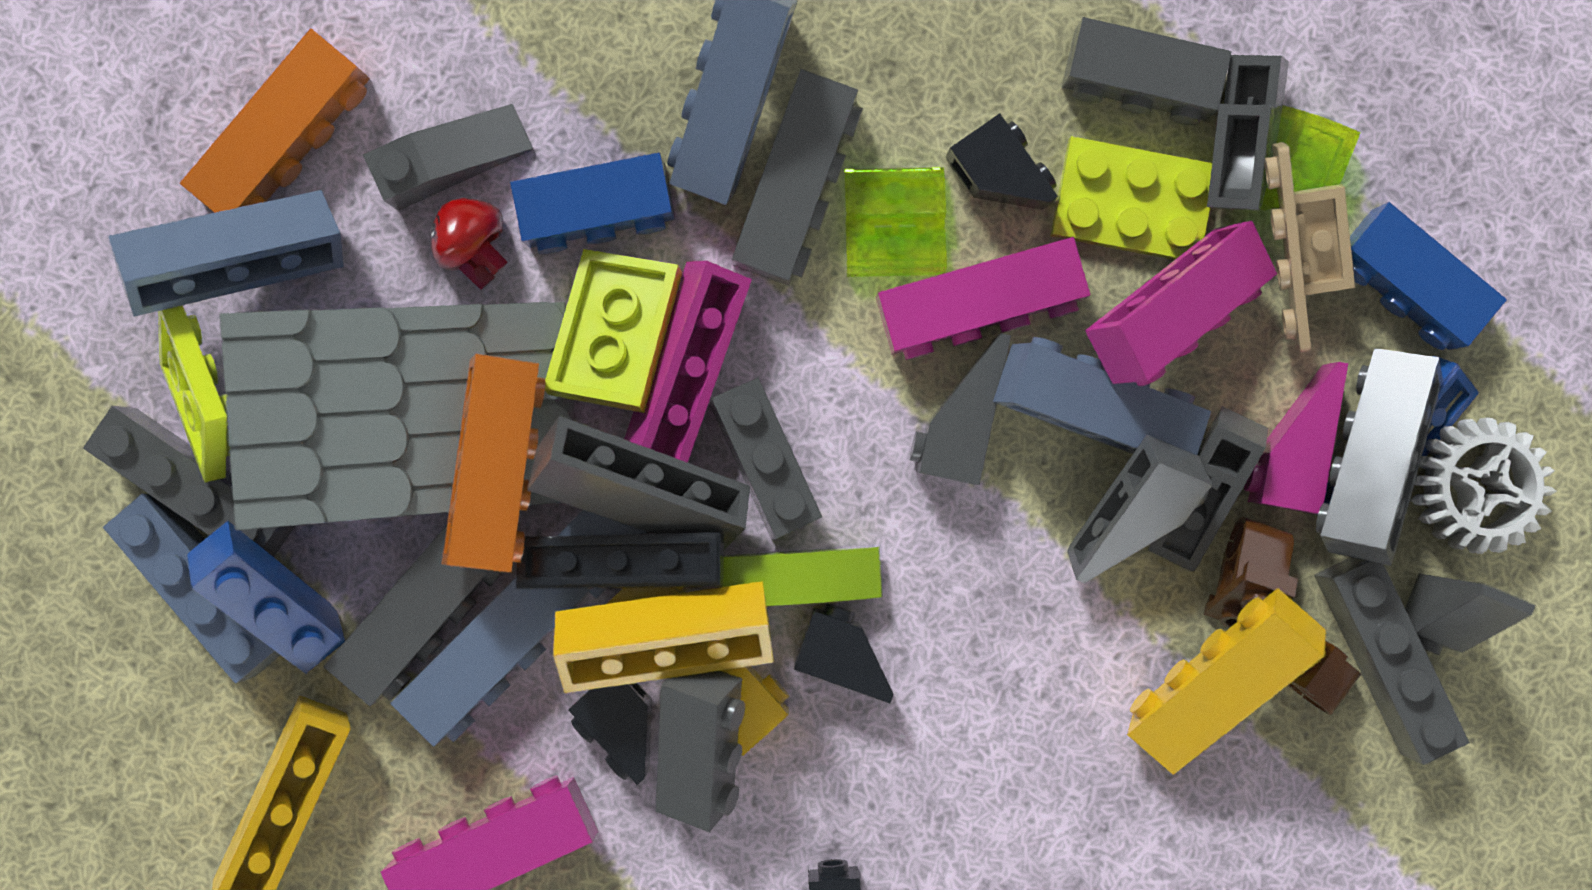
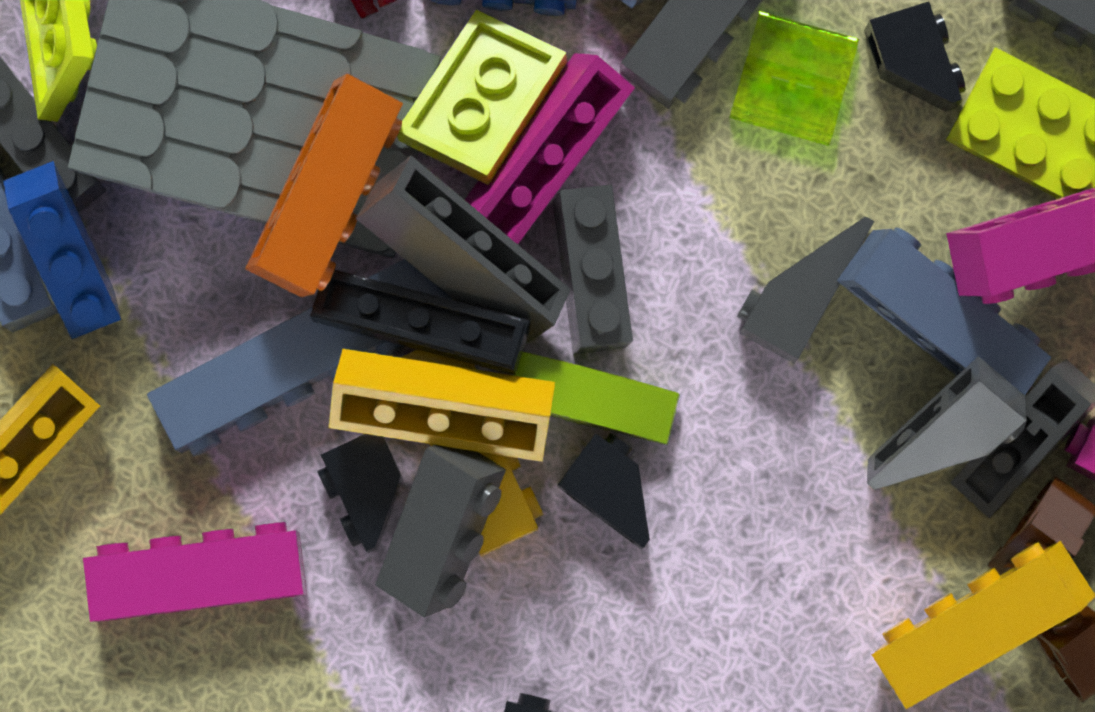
camera: 15 degrees right, 5 degrees down
(407, 624) = (189, 320): dark grey brick -> none
(983, 296) = (858, 177): dark pink brick -> none

